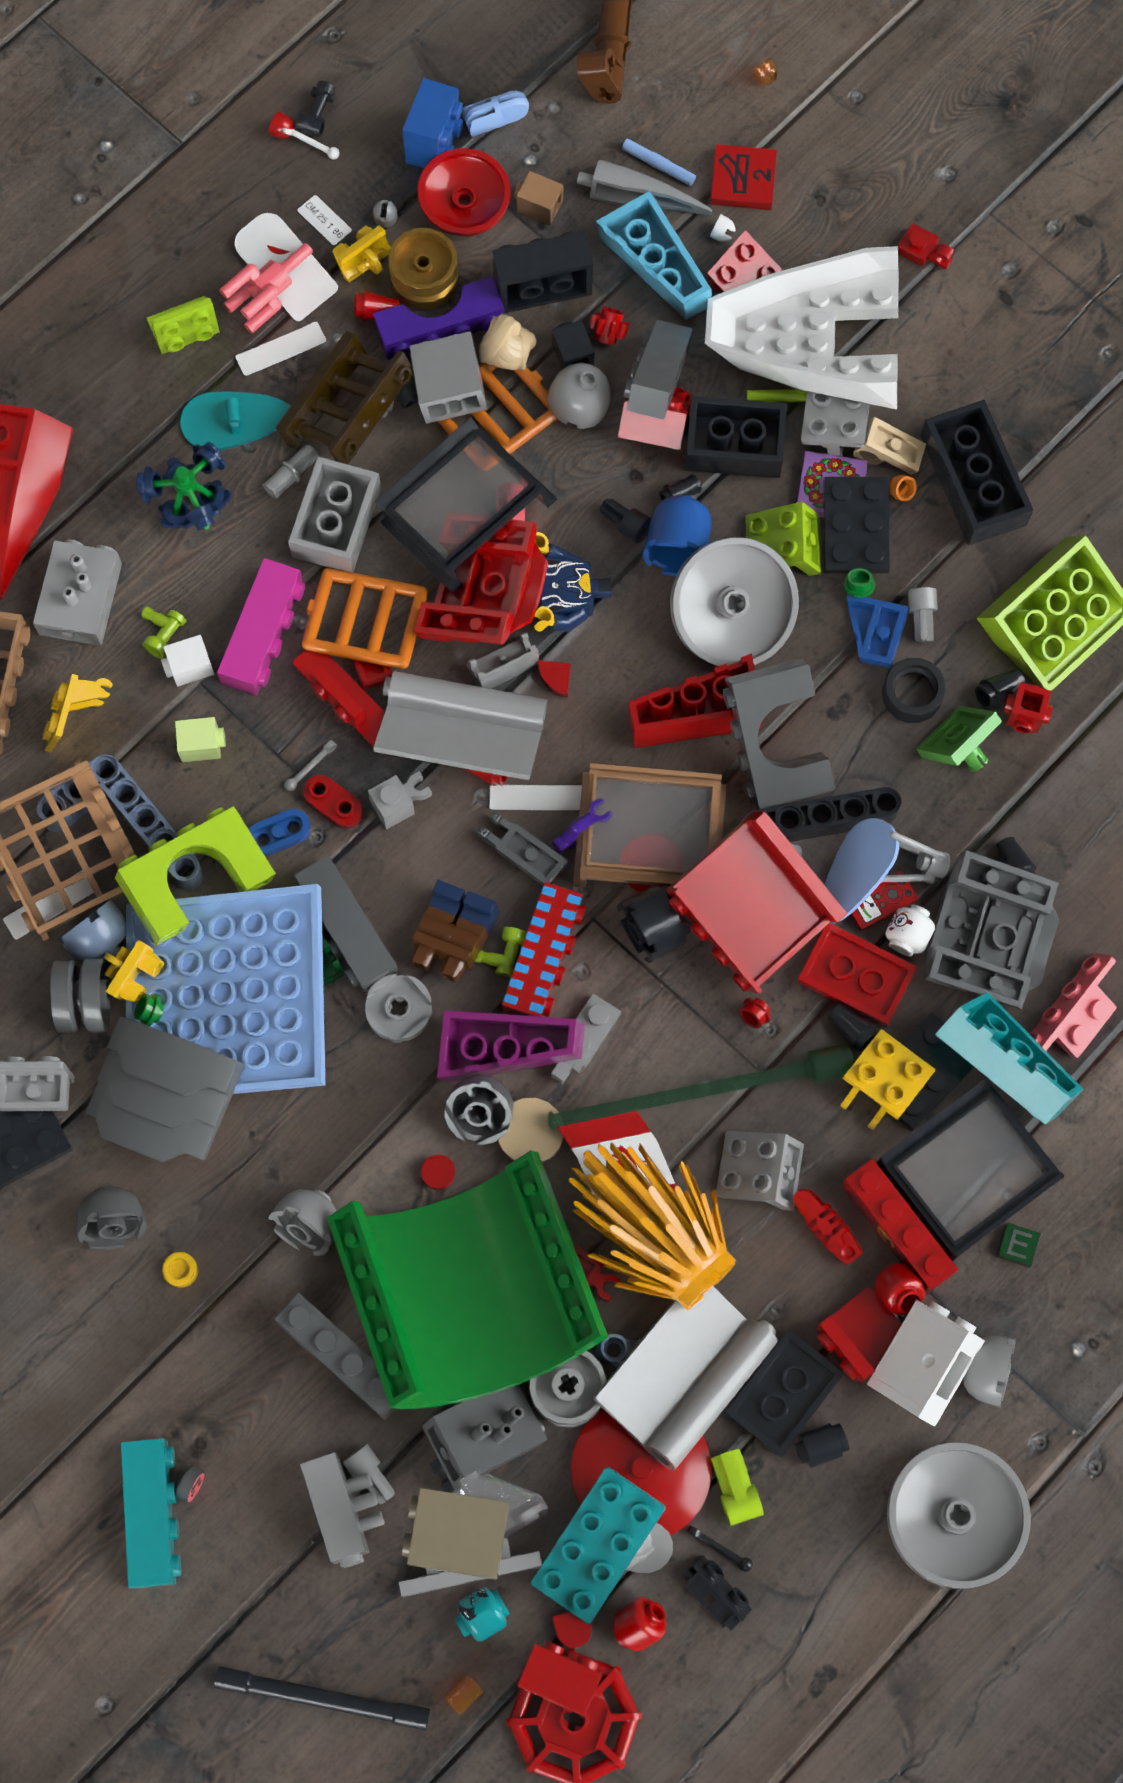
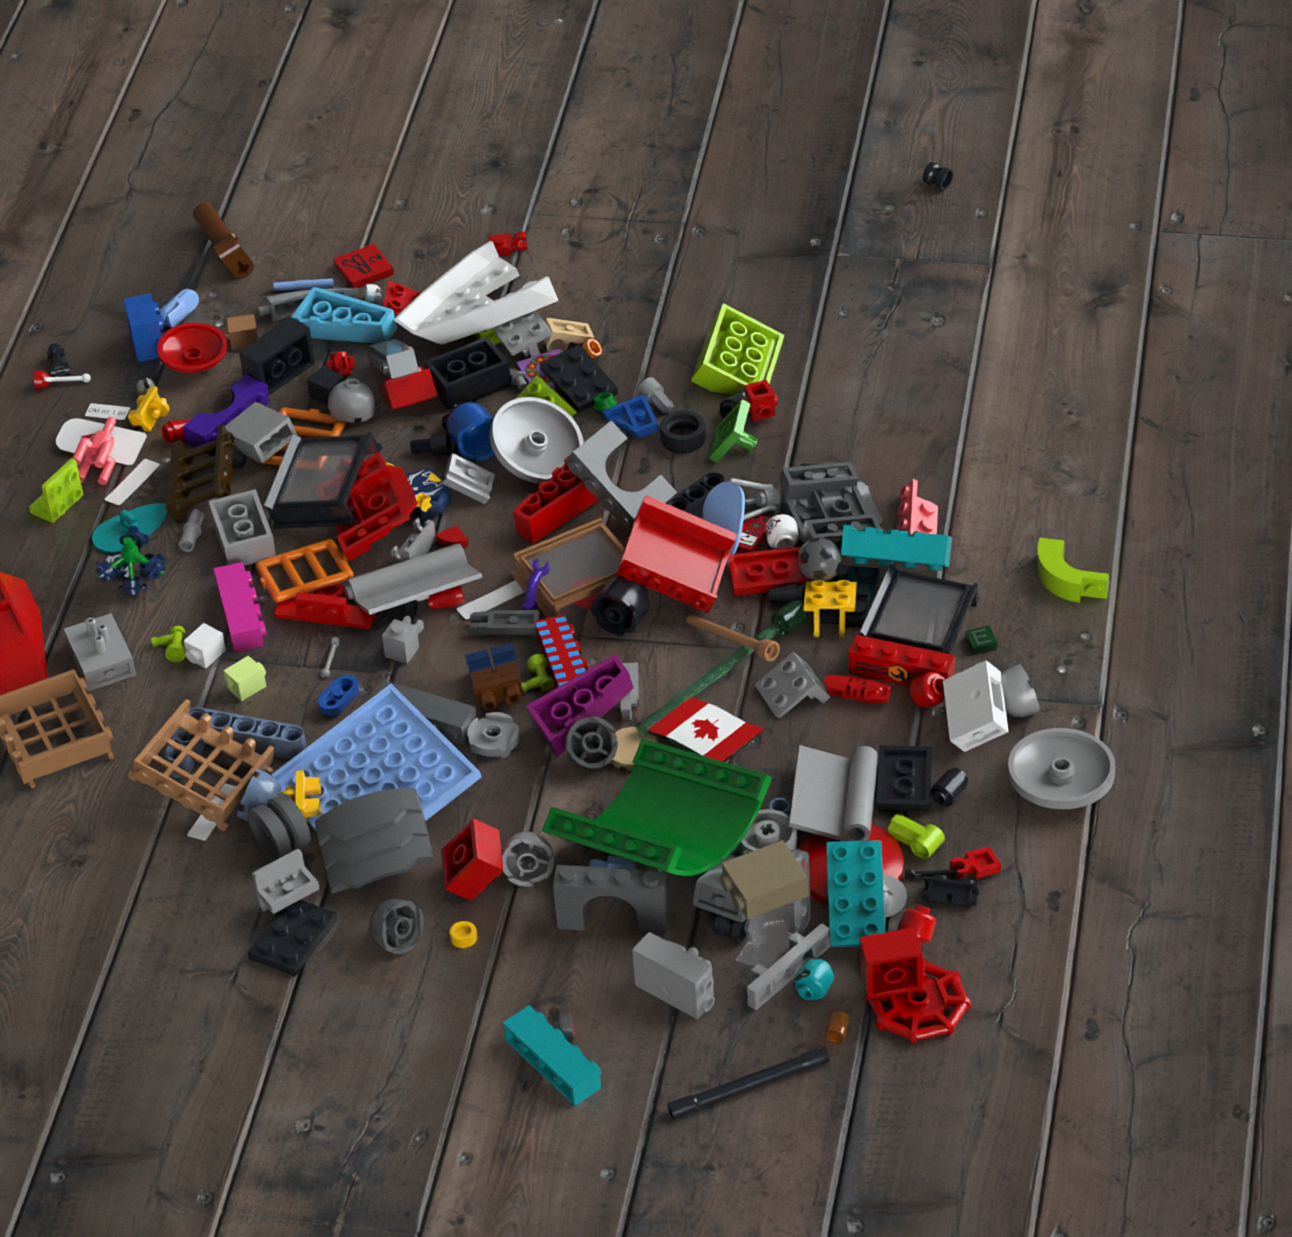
camera: 30 degrees left, 30 degrees down
(70, 697) = (144, 700): yellow plate -> none
(149, 1009) = (329, 803): green plate -> none
(220, 837) = (304, 703): lime arch -> none
(241, 1191) = (472, 859): none -> red brick
(332, 800) = (361, 665): red plate -> none
(423, 268) = (196, 391): pearl gold wheel -> none
(438, 1172) = (590, 798): red tile -> none
(506, 344) = (283, 399): tan hair -> none
(625, 605) = (468, 478): none -> light grey plate
(673, 1239) = (754, 721): light orange plant -> none
(755, 1012) = (722, 613): red plate -> none
(758, 1110) = (765, 648): none -> medium nougat piece
(766, 72) = (335, 215): clear orange hinge -> none
(774, 1578) = (979, 862): none -> red plate
(789, 473) = (517, 378): none -> light grey bar
(859, 1334) = (923, 727): red bracket -> none
(911, 1017) = (819, 559): none -> dark grey piece
(976, 472) = (631, 317): black brick -> none

